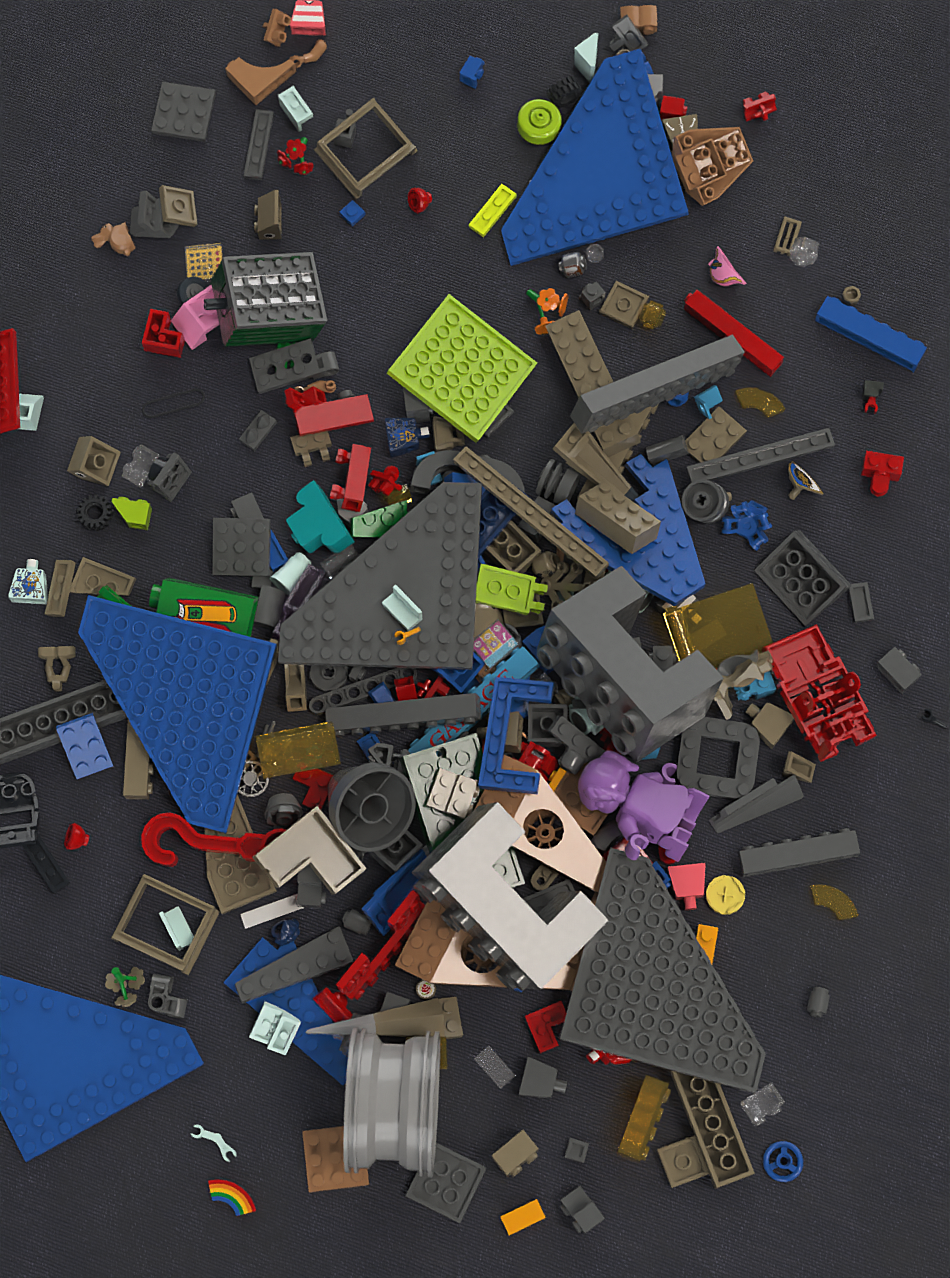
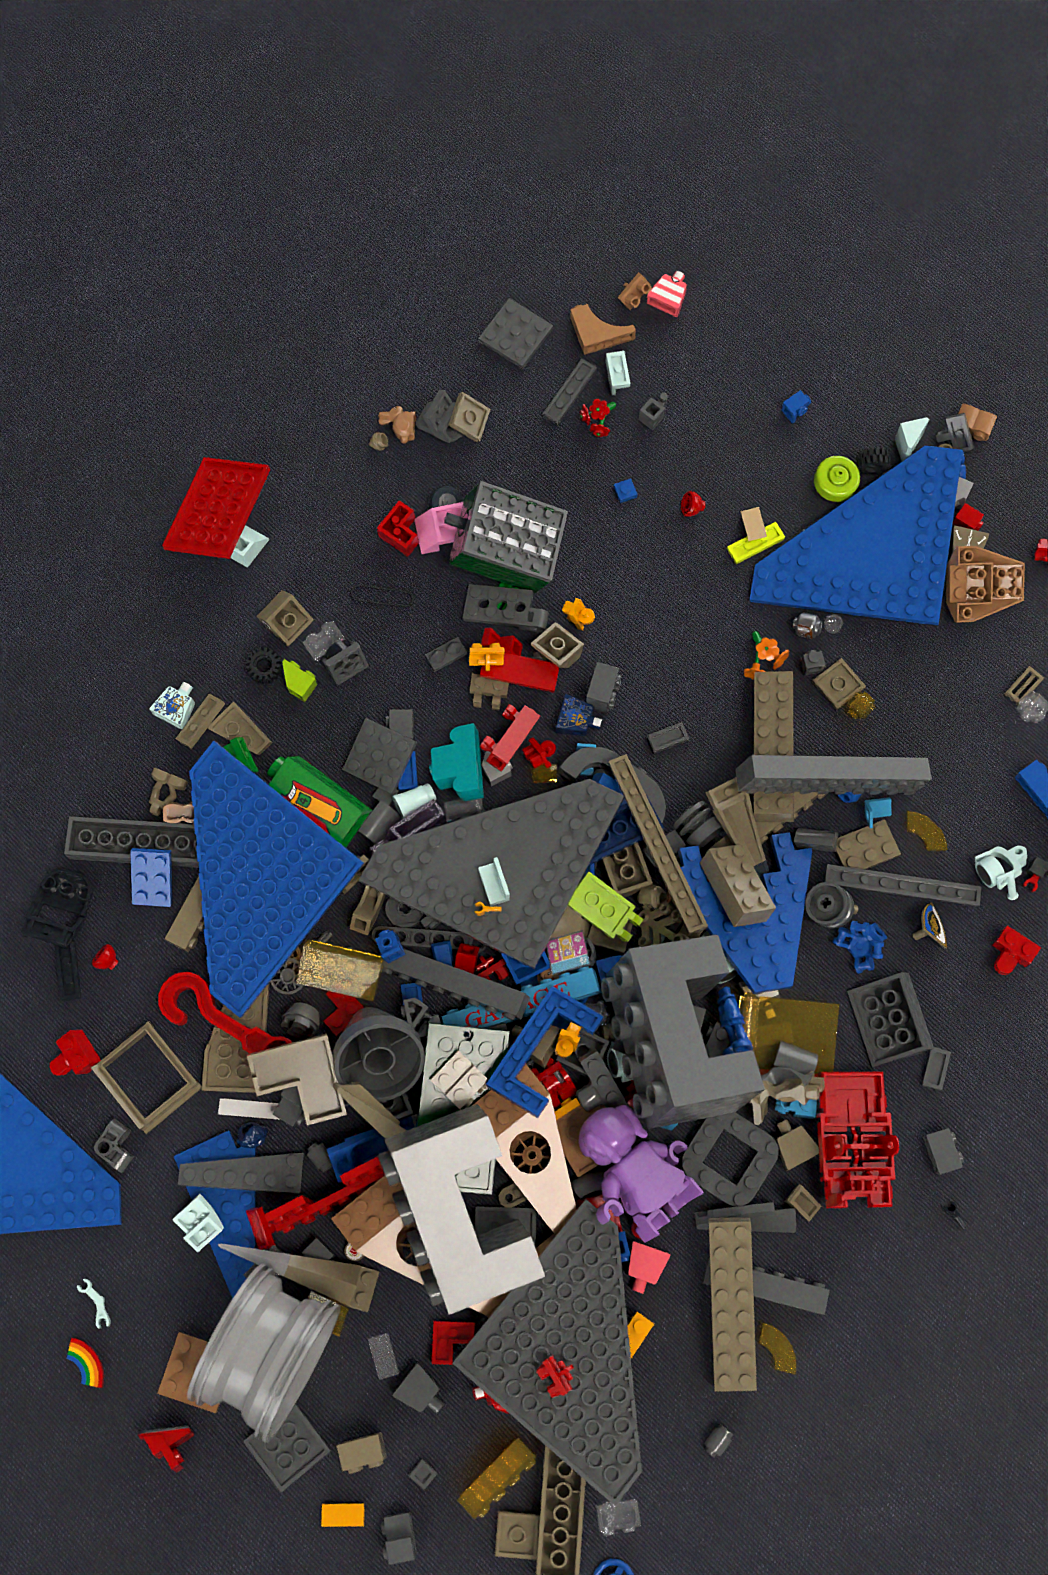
camera: 25 degrees right, 0 degrees up
(80, 678) = (177, 812): none -> medium nougat brick
(91, 933) = (76, 1054): none -> red brick
(103, 263) = (378, 441): none -> dark tan plate
(117, 982) = (79, 1111): dark tan plant -> none
(177, 928) = (155, 1085): light aqua panel -> none
(203, 260) = (468, 475): clear tile -> none
(269, 216) = (547, 461): dark tan slope -> none
(299, 414) = (486, 656): none -> light orange hips
(314, 55) = (656, 331): medium nougat arm -> none
(326, 386) = (525, 639): medium nougat arm -> none
(336, 713) = (393, 950): none -> blue brick
(338, 1228) = (164, 1443): none -> red piece
(354, 187) = (630, 443): dark tan piece -> none
(358, 377) = (559, 646): none -> dark tan slope
(362, 341) = (578, 613): none -> light orange hips
(379, 521) = (515, 788): green wing -> none
(384, 854) = (370, 1109): none -> dark tan wedge
(443, 435) = (613, 733): dark tan piece -> none
(462, 368) = (657, 678): lime plate -> none
(482, 194) = (753, 524): none -> tan tile
(531, 717) = (568, 1040): none -> light orange hips
(663, 1012) = (559, 1374): none -> red hips
(666, 637) = (732, 1021): none -> blue piece
(722, 270) = (947, 692): bright pink hat -> none
(725, 325) = (926, 746): red brick -> none
(725, 895) = (677, 1293): light yellow tile -> none
(735, 645) = (795, 1058): none -> dark grey brick
(777, 879) = (732, 1304): none -> dark tan brick
(834, 411) = (992, 872): none -> light aqua piece

